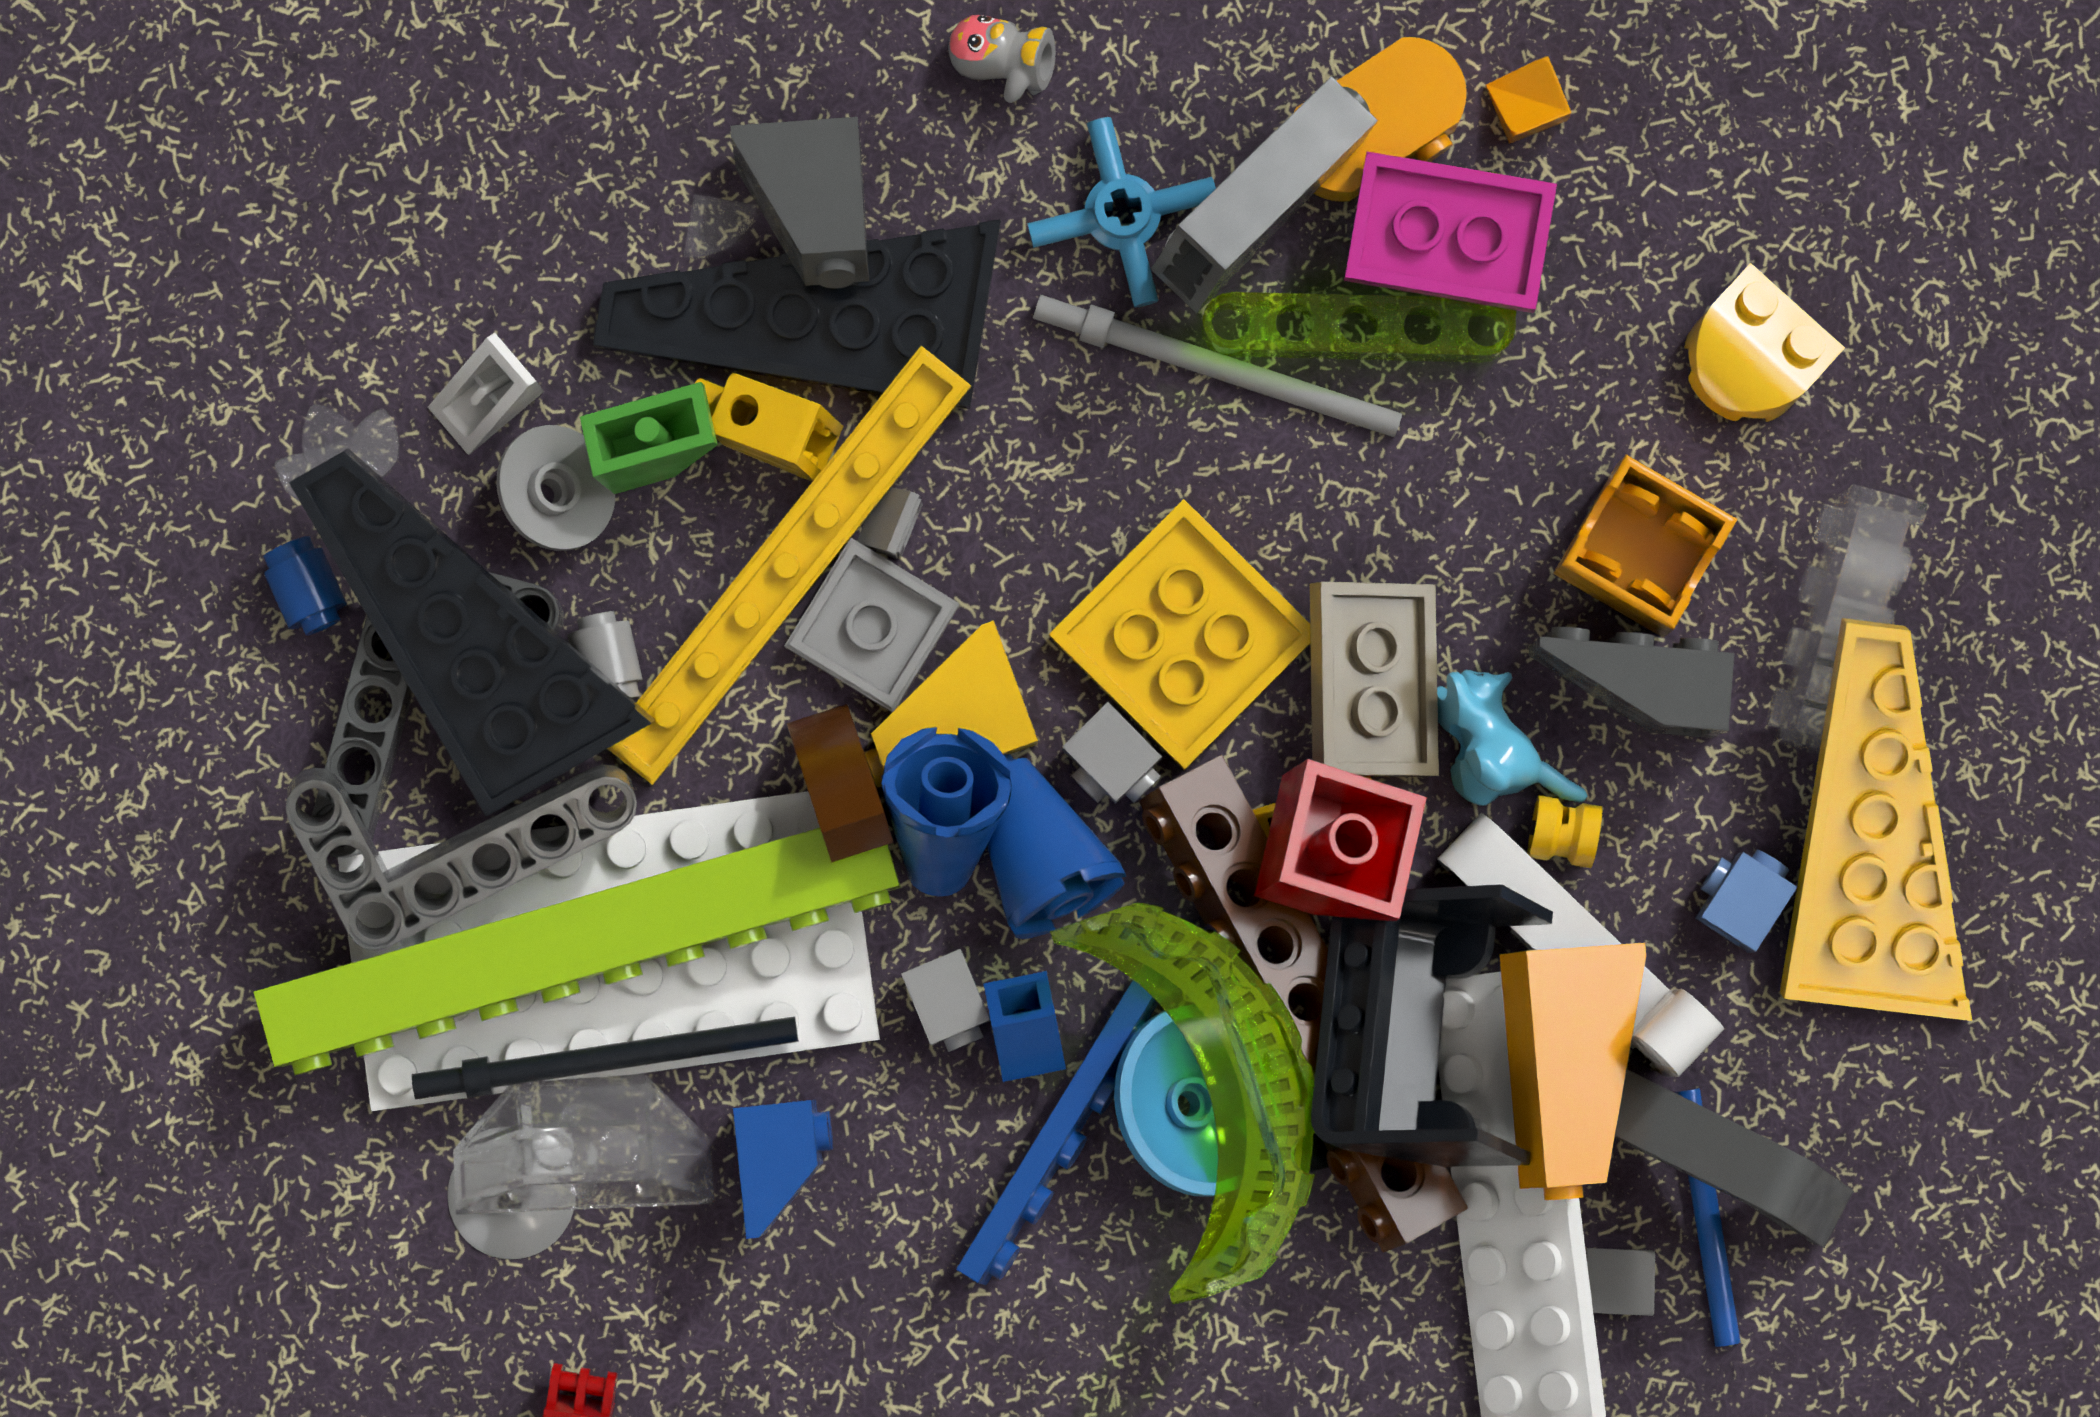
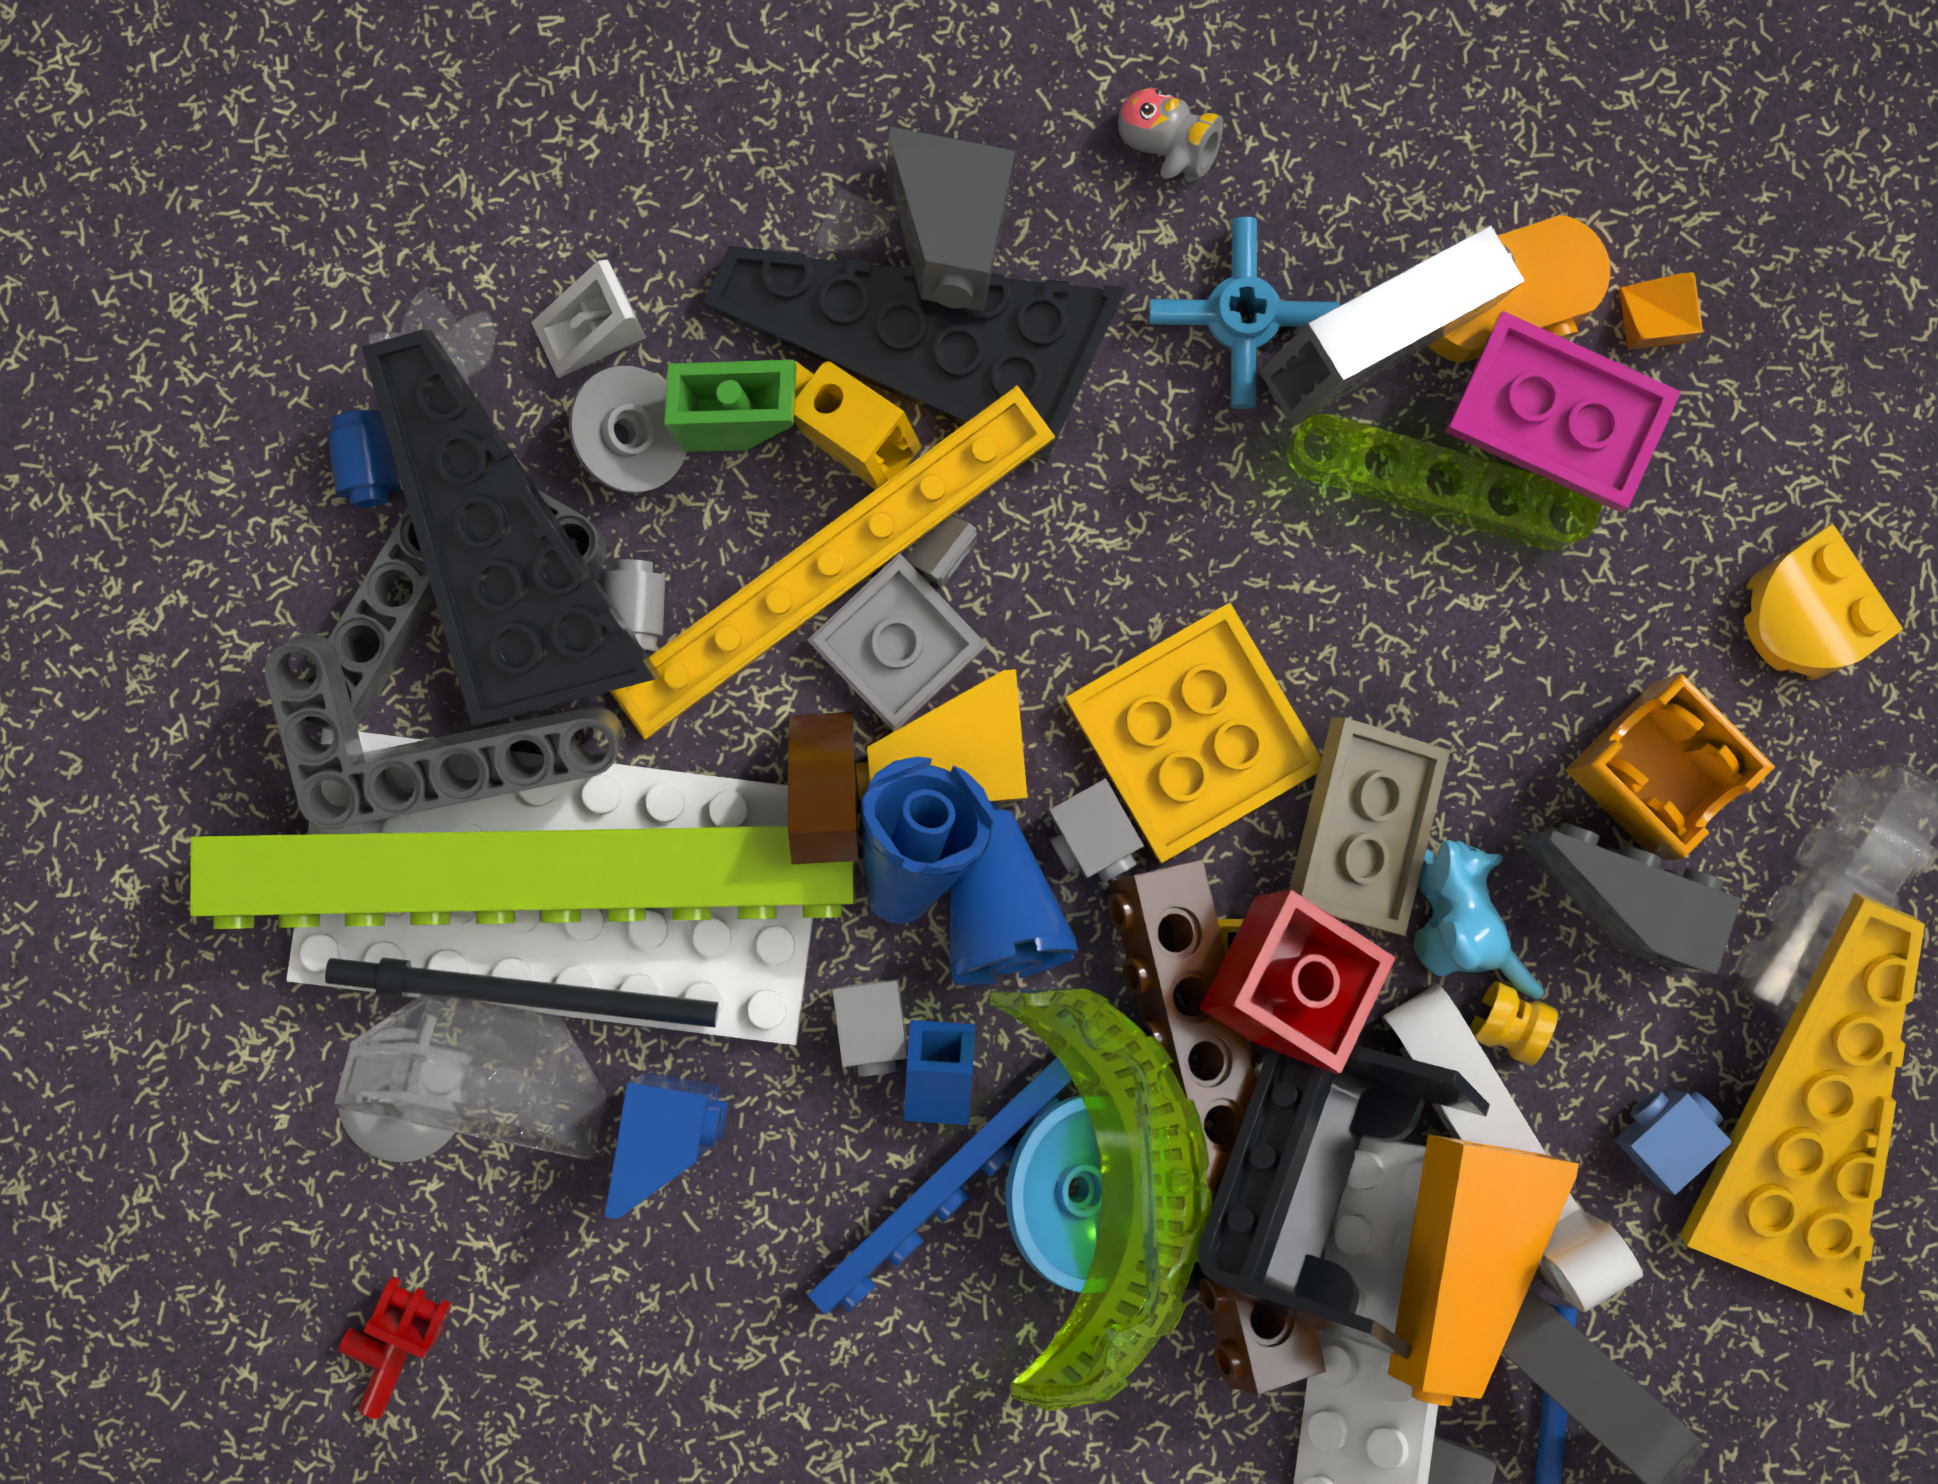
camera: 10 degrees right, 0 degrees up
(1100, 327) = (1191, 417): light grey bar -> none

